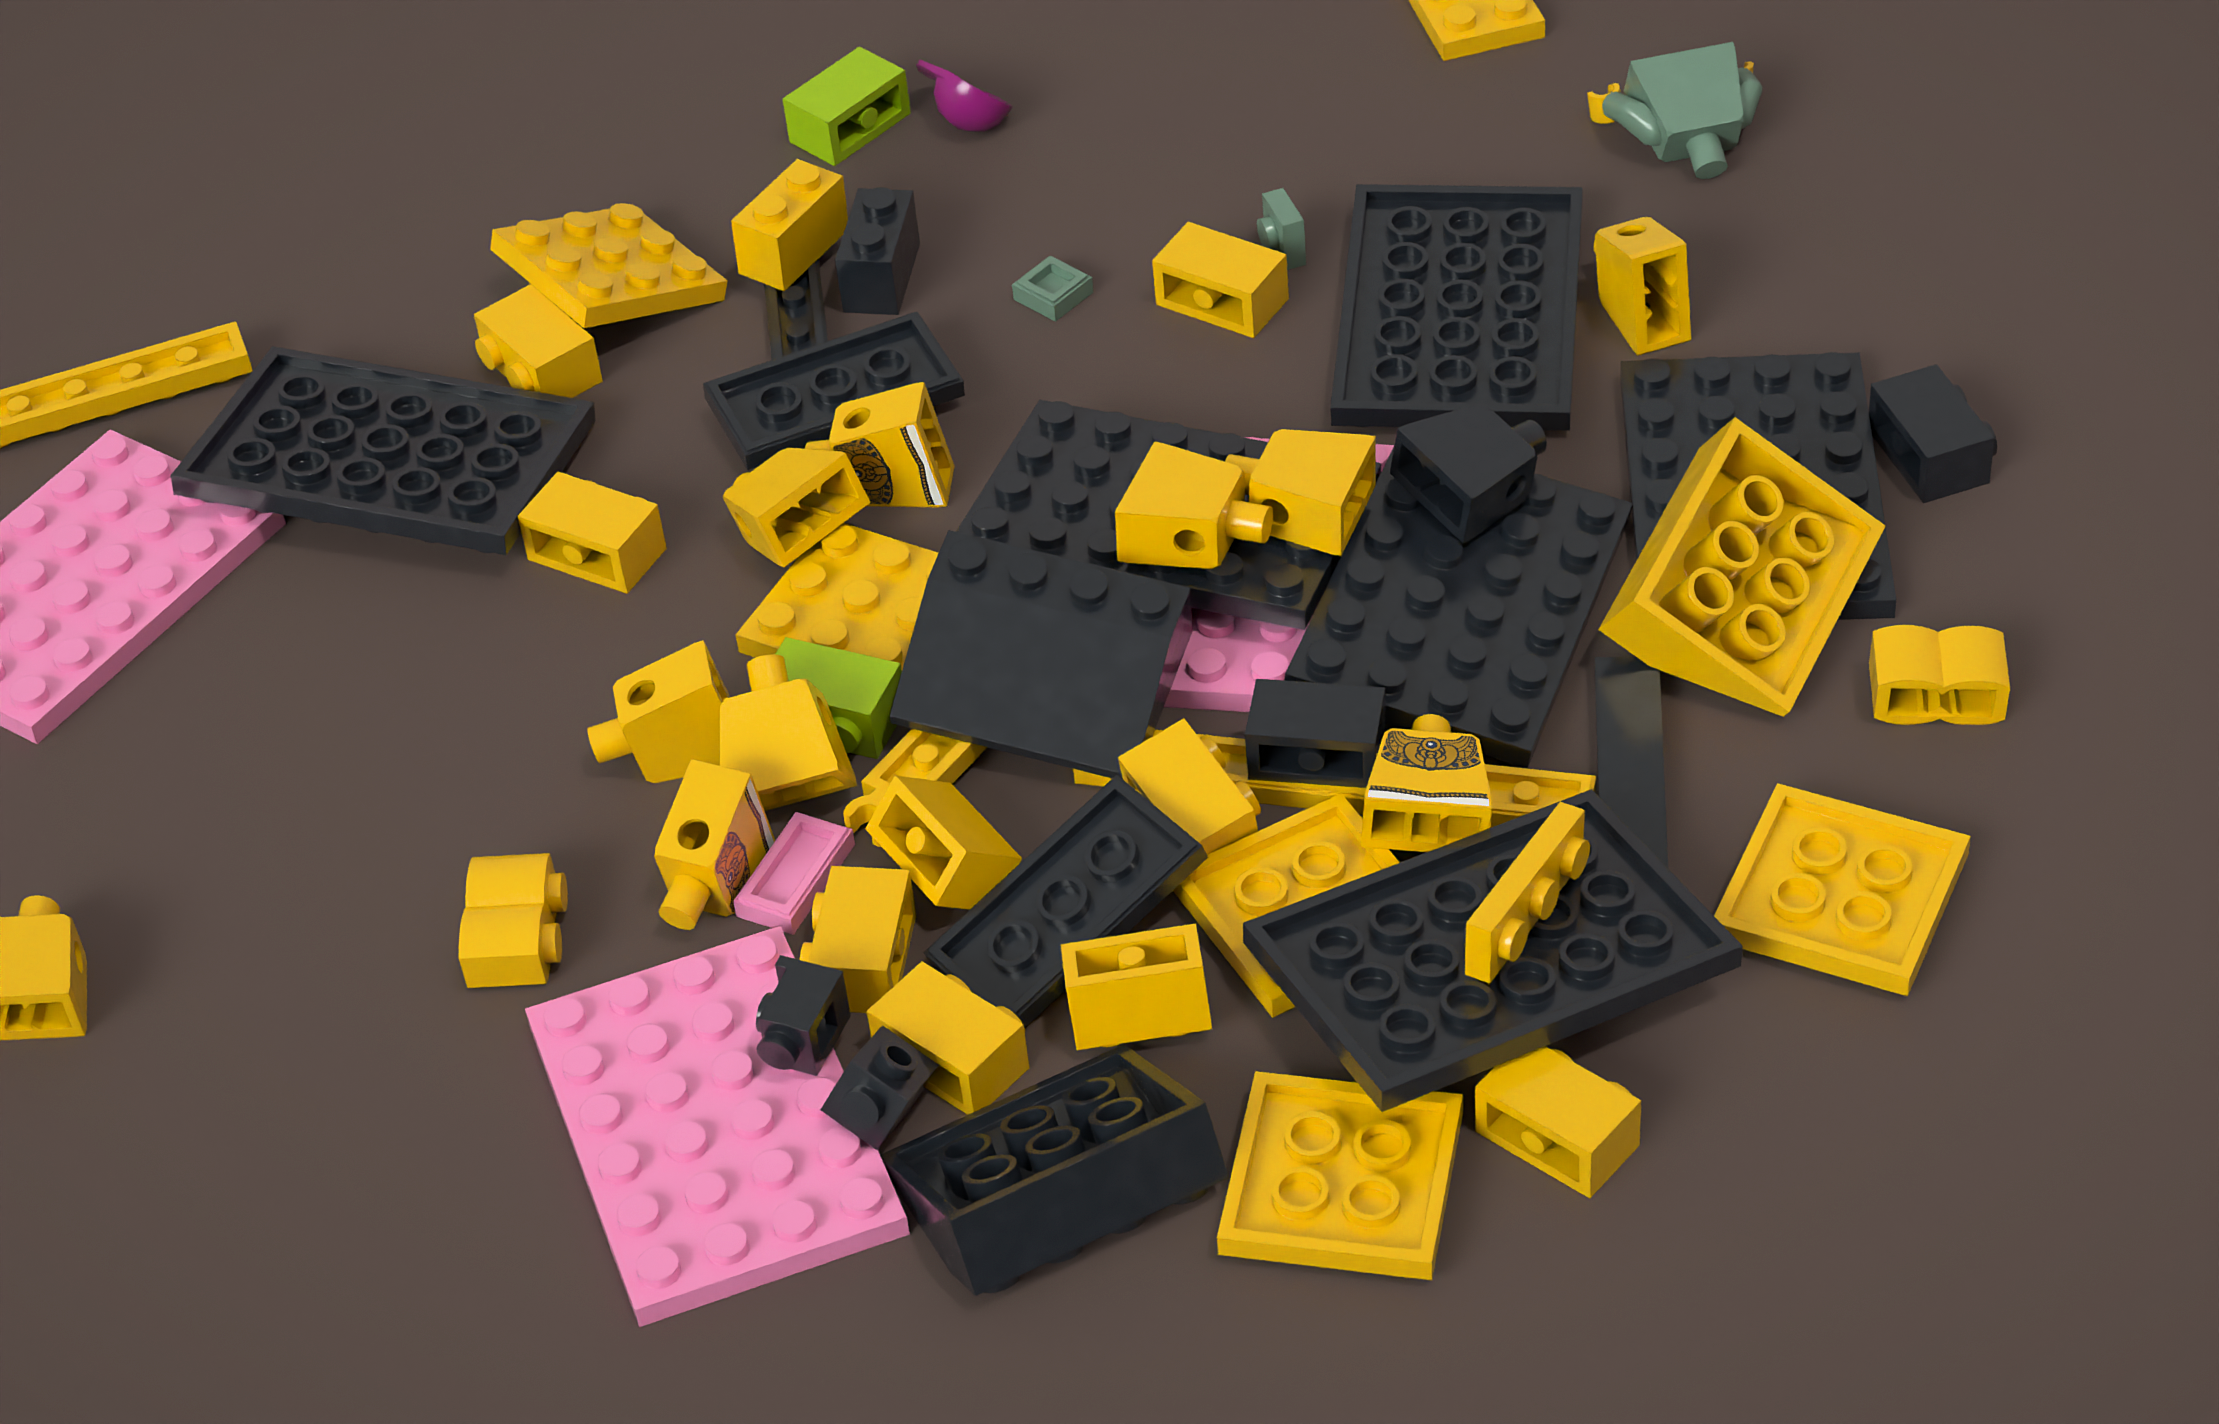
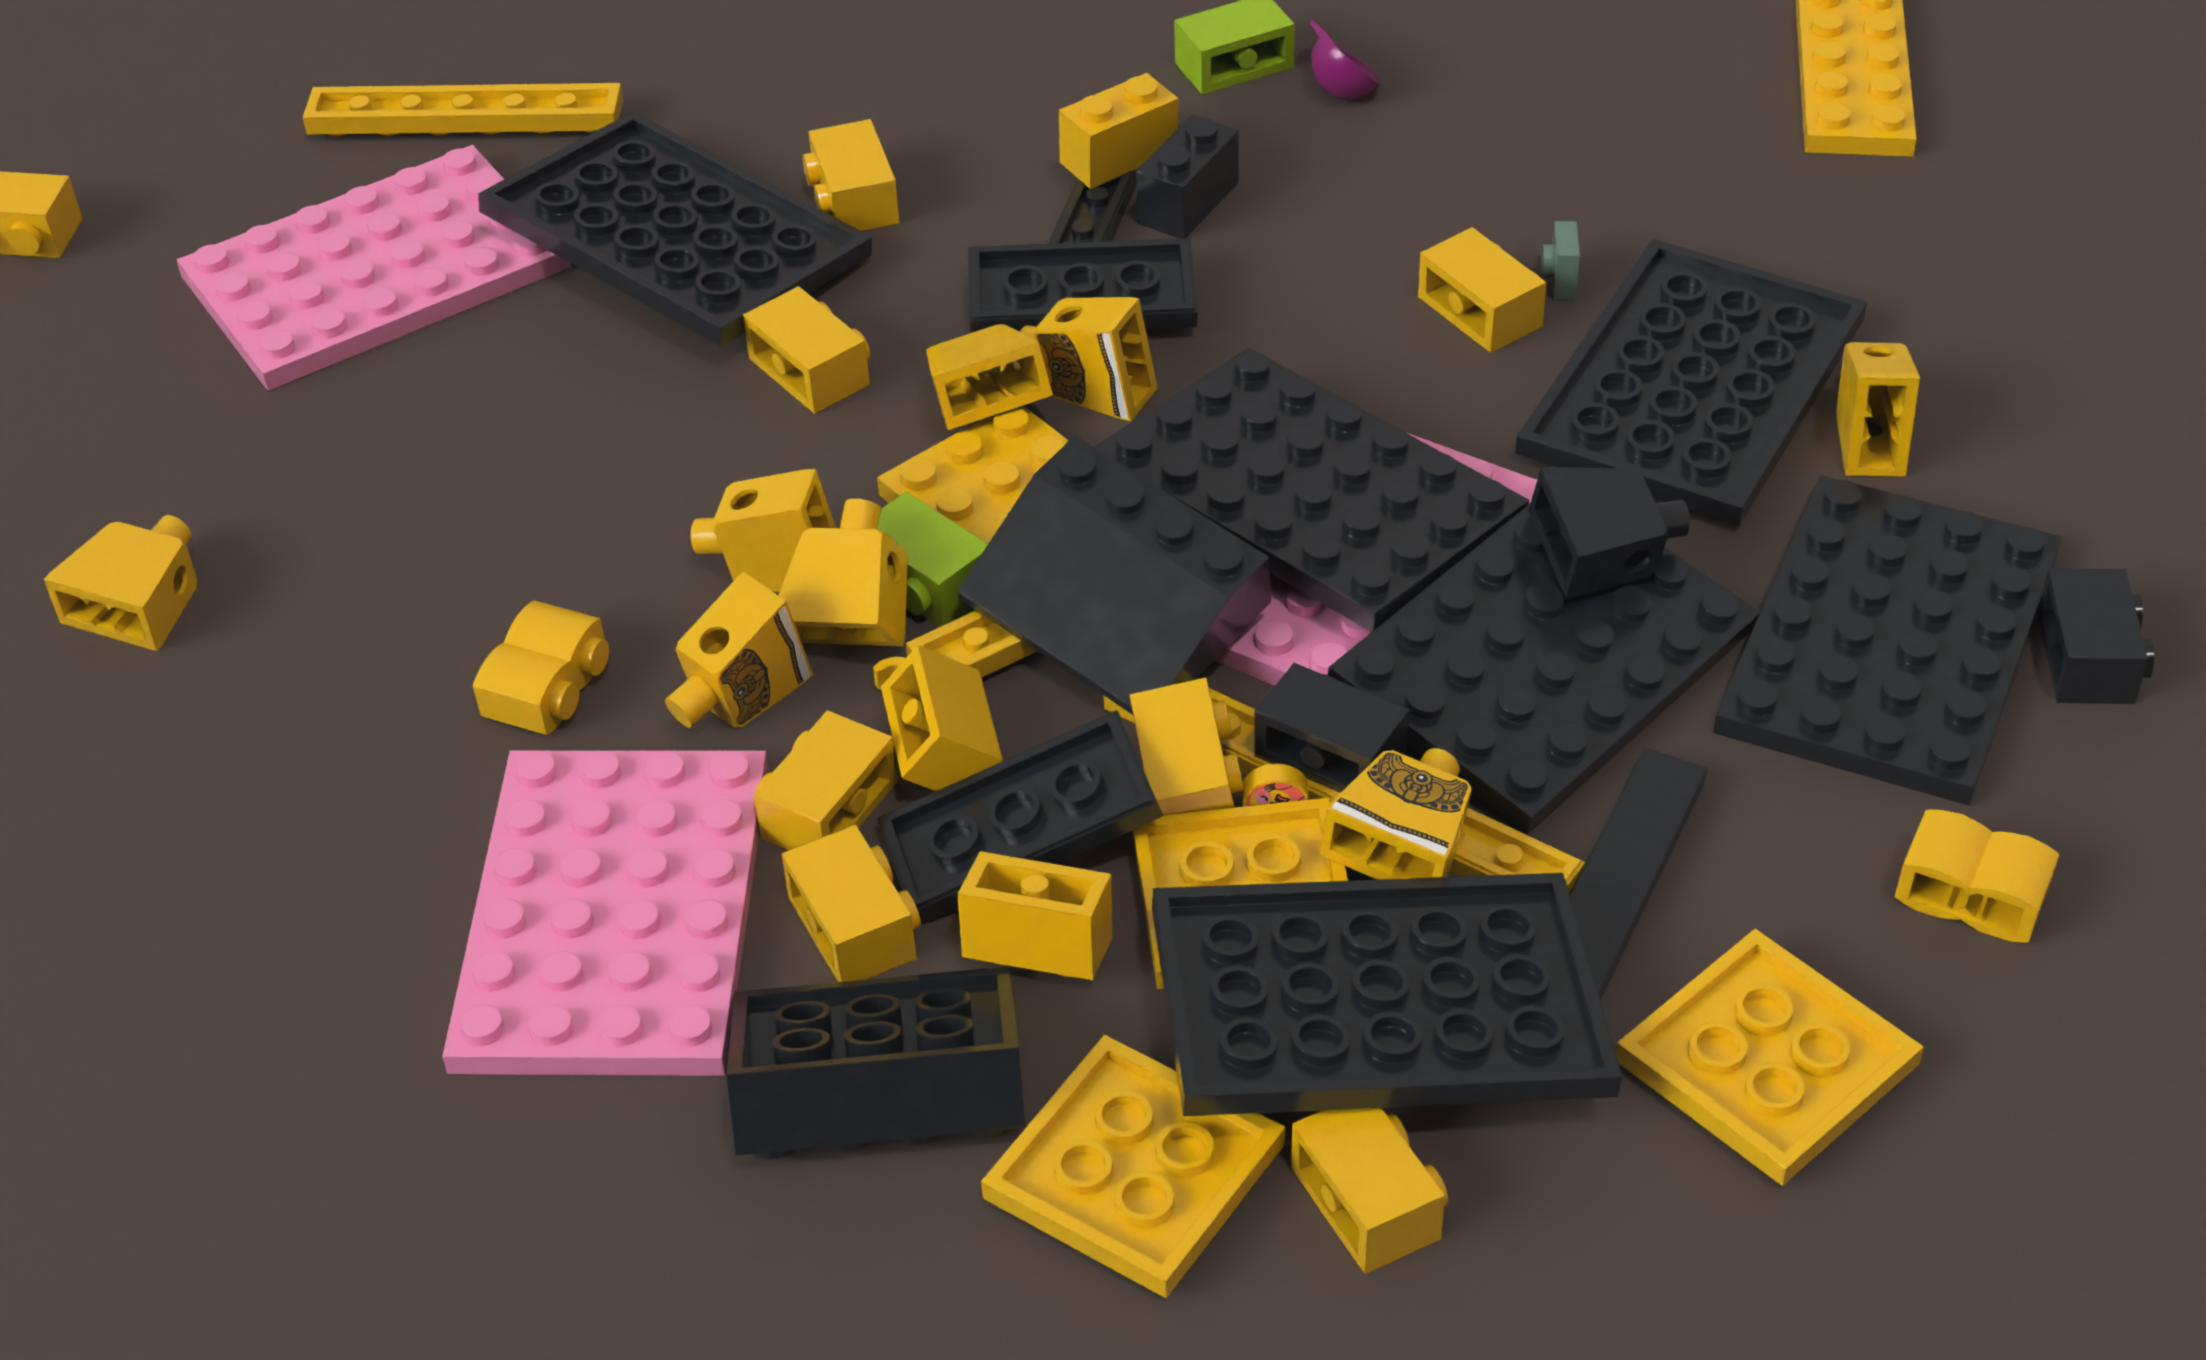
camera: 20 degrees right, 0 degrees up
(608, 265) = (949, 123): yellow plate -> none
(792, 872) = (796, 708): bright pink tile -> none
(802, 1016) = (720, 839): black brick -> none
(879, 1087) = (755, 928): black brick -> none
(1052, 288) = (1330, 255): sand green tile -> none
(1186, 511) = (1304, 485): yellow torso -> none
(1285, 798) = (1274, 785): none -> yellow tile
(1313, 485) = (1433, 497): yellow torso -> none
(1526, 893) = (1426, 950): yellow plate -> none
(1684, 105) = (2008, 253): sand green torso -> none
(1744, 572) = (1824, 713): yellow slope -> none

